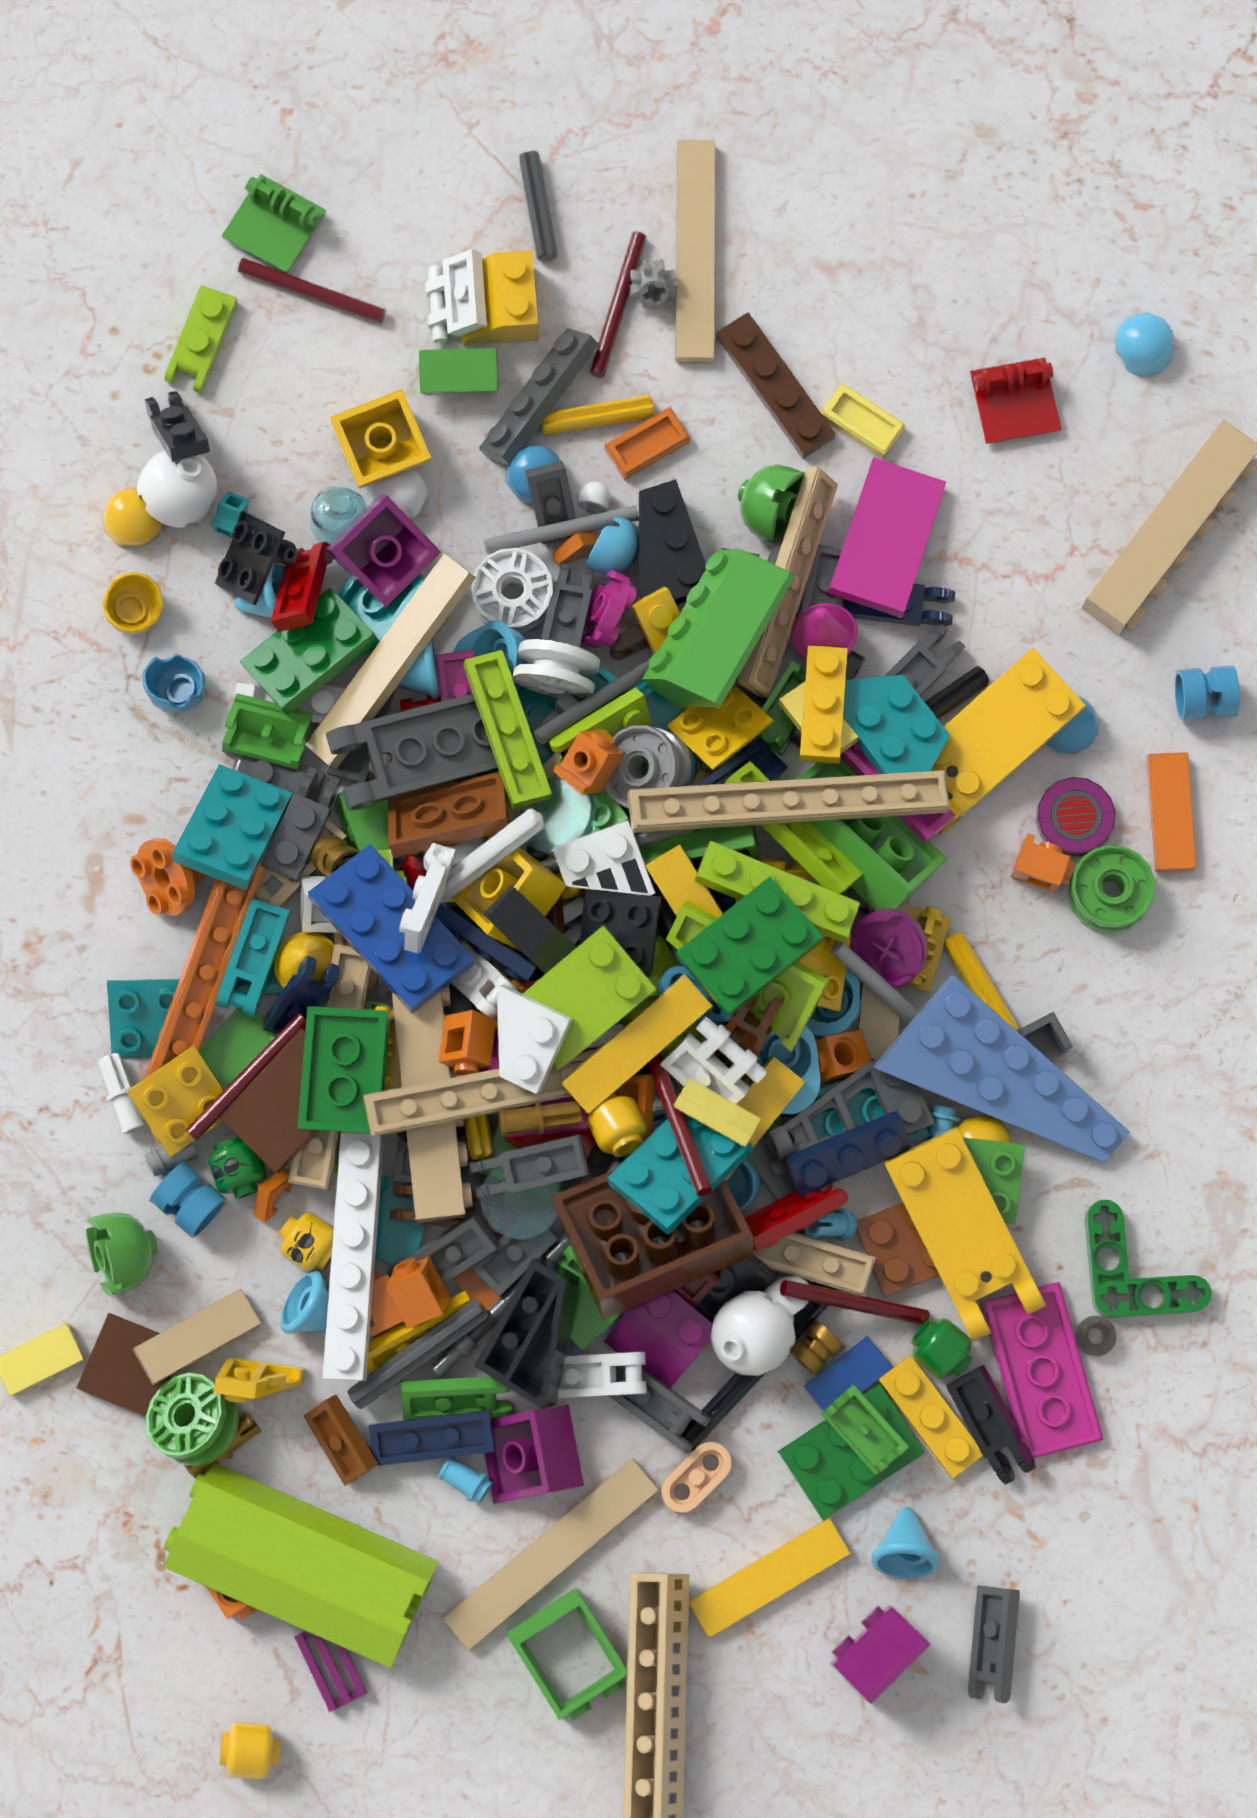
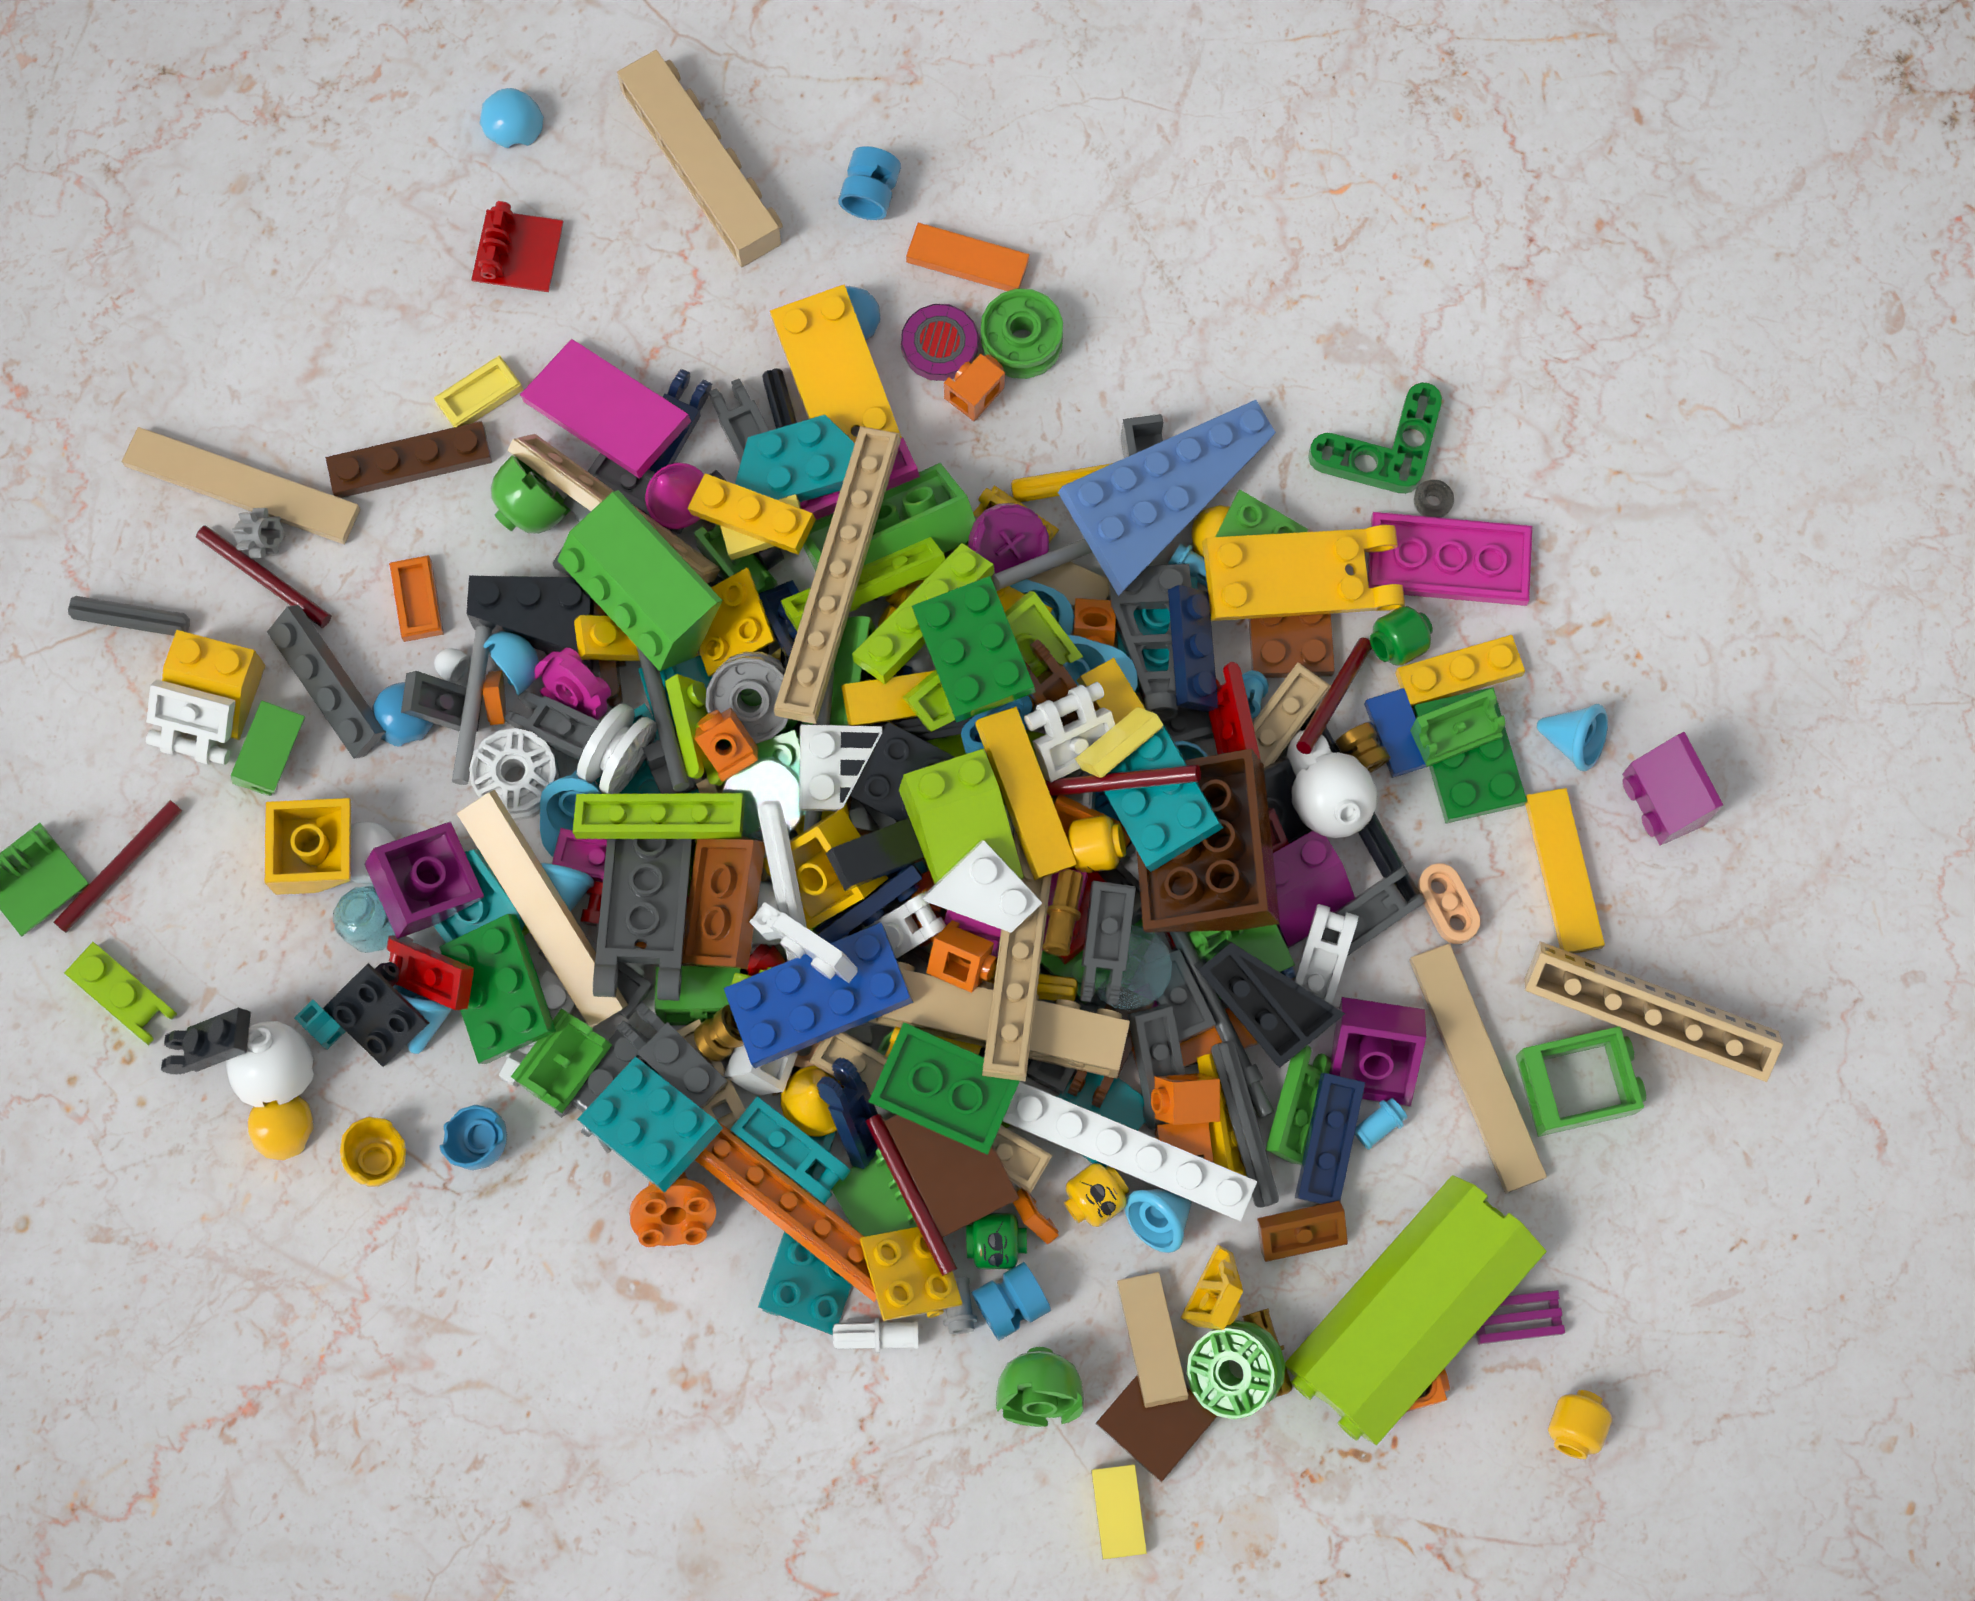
camera: 70 degrees left, 5 degrees down
(598, 415) = (368, 632): yellow axle -> none
(990, 1422) = (1483, 618): black hinge -> none
(993, 1642) = (1687, 687): dark grey hinge -> none

